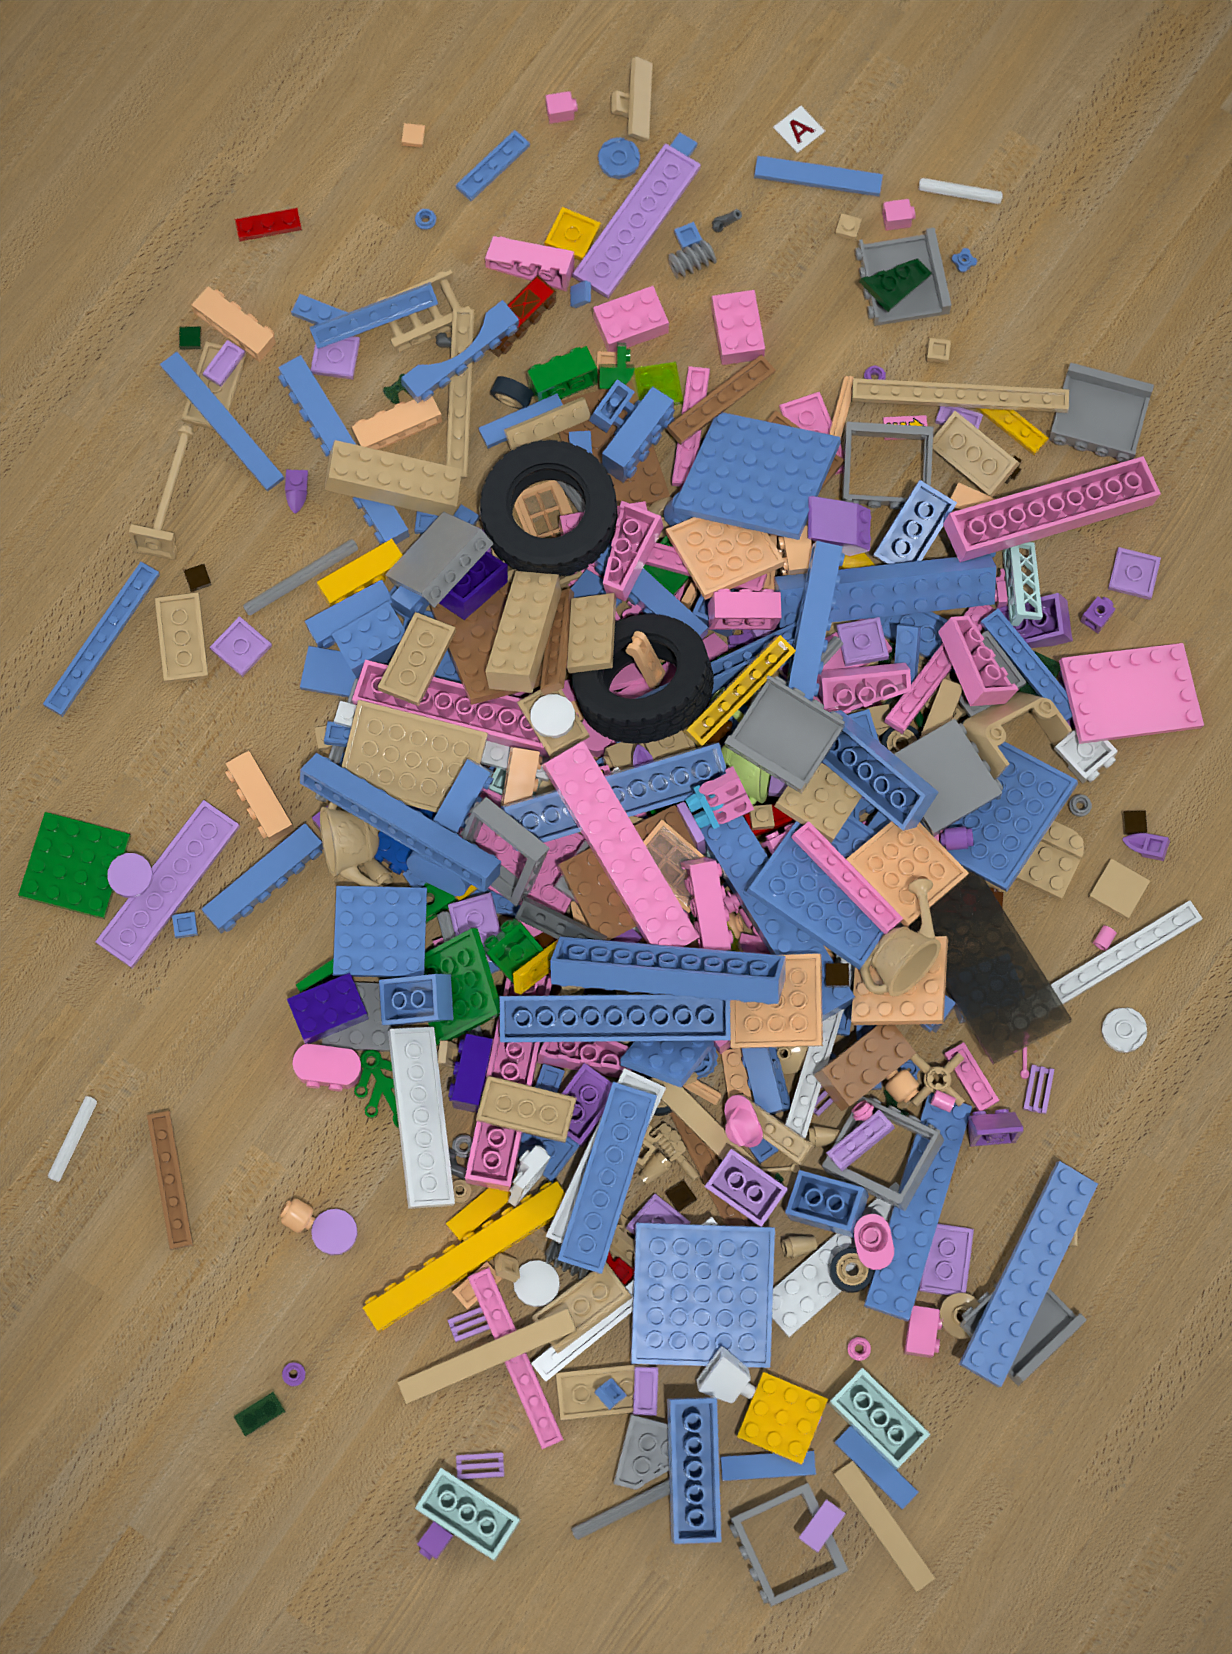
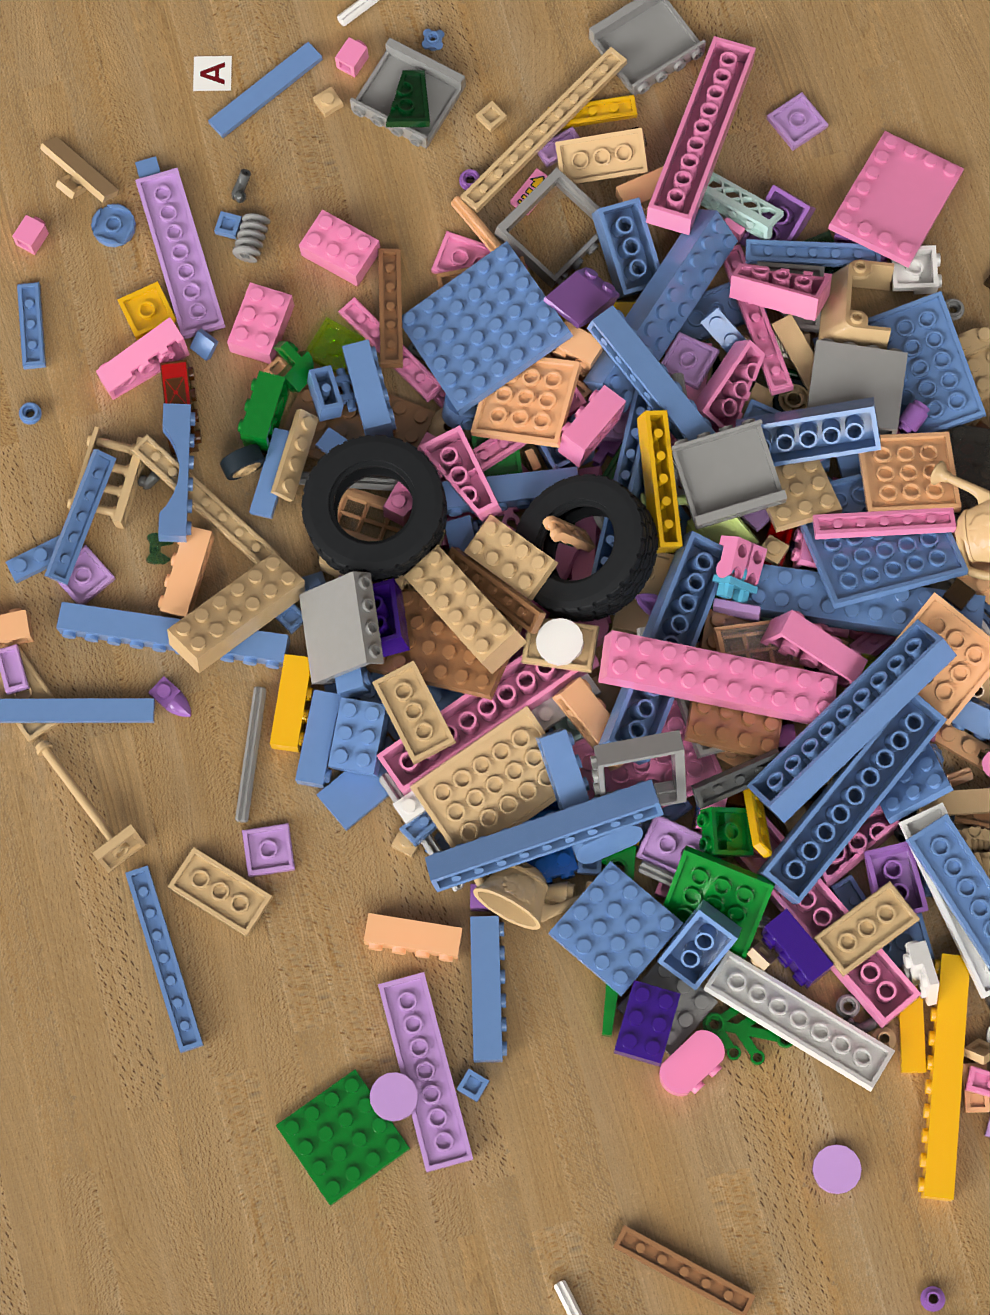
camera: 45 degrees left, 0 degrees up
(197, 577) = (178, 838): dark brown tile -> none
(297, 1215) = (799, 1189): light nougat head -> none
(1096, 620) = (809, 178): medium lavender brick -> none

